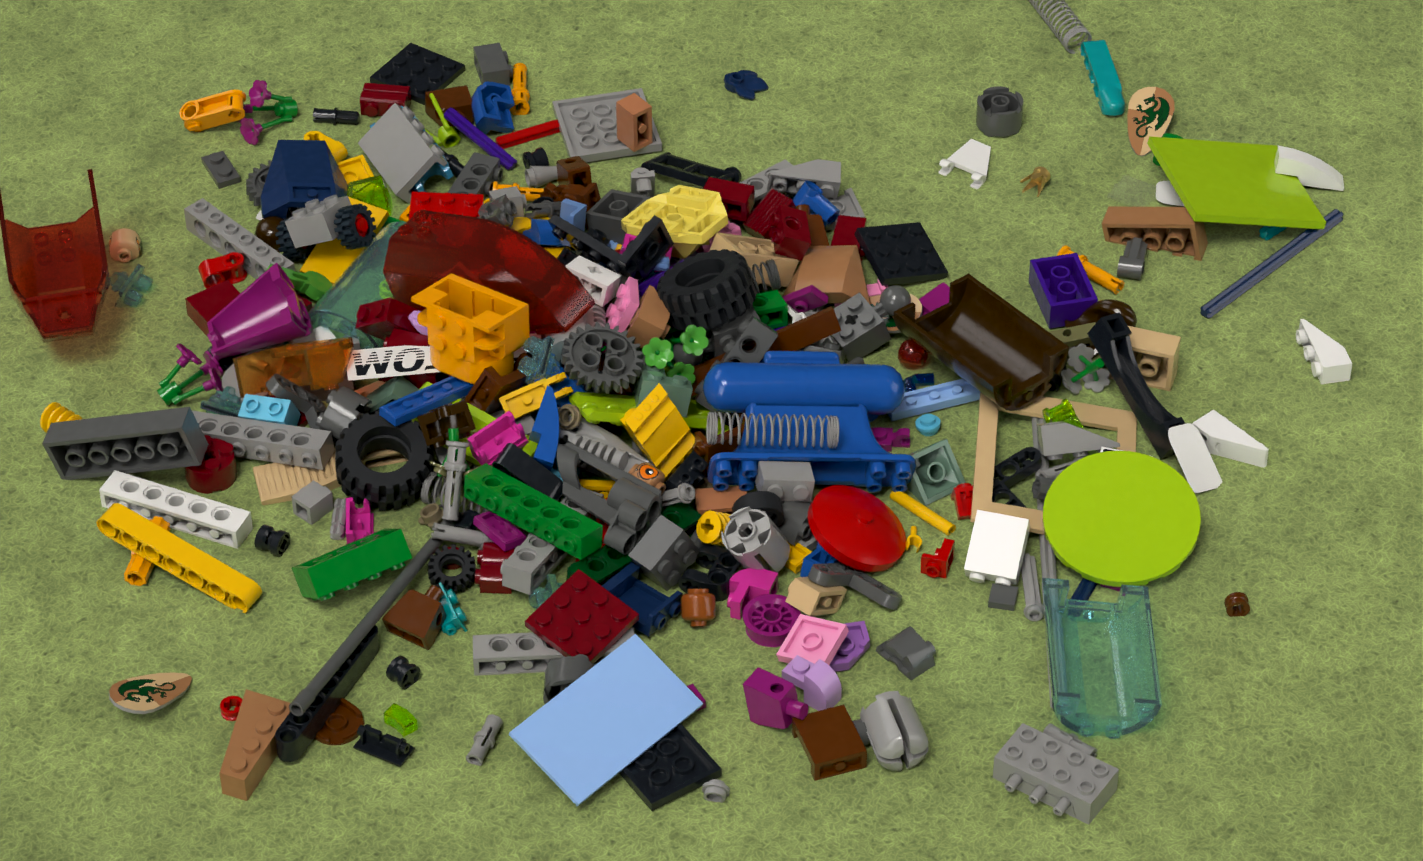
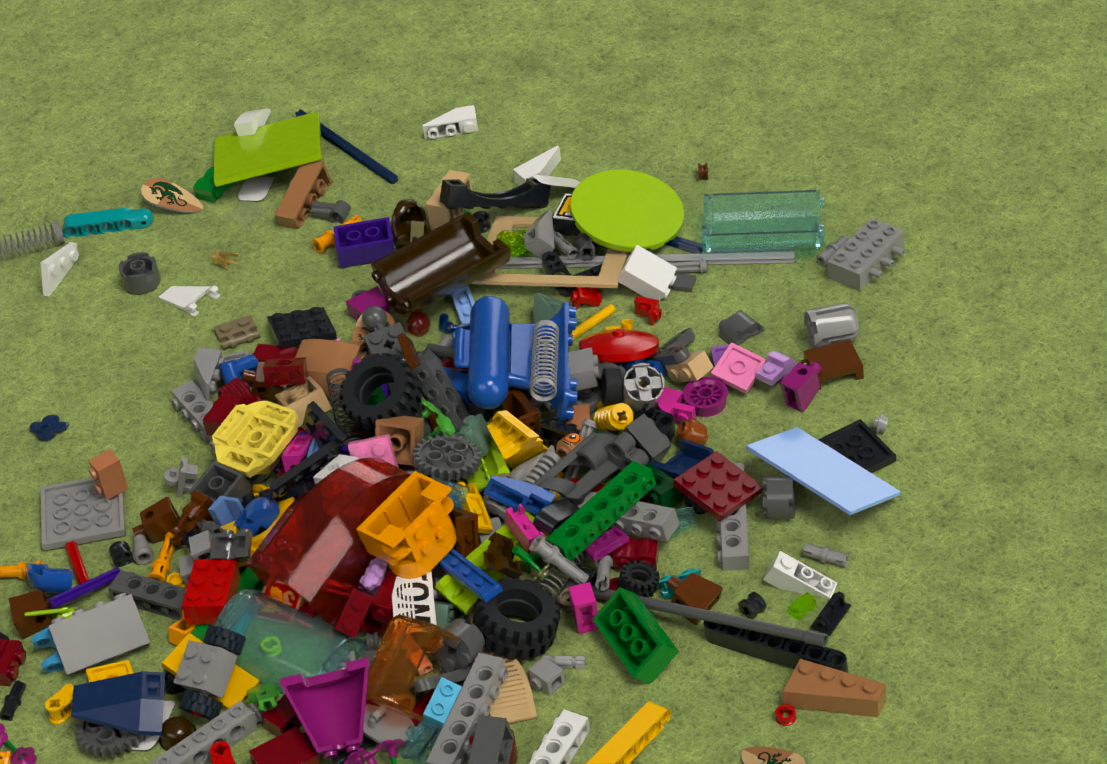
camera: 80 degrees left, 0 degrees up
(274, 541) = (591, 698): black wheel -> none
(358, 520) = (583, 647): dark pink hinge -> none
(371, 191) = (146, 659): clear neon green slope -> none
(403, 513) = (583, 607): none -> dark pink brick
(443, 713) = (795, 576): none -> white slope
(689, 170) = (173, 430): black piece -> none
(909, 203) = (237, 332): none -> dark tan plate
(1010, 46) = (57, 266): none -> white wing
(1114, 397) = (483, 219): none -> black wheel

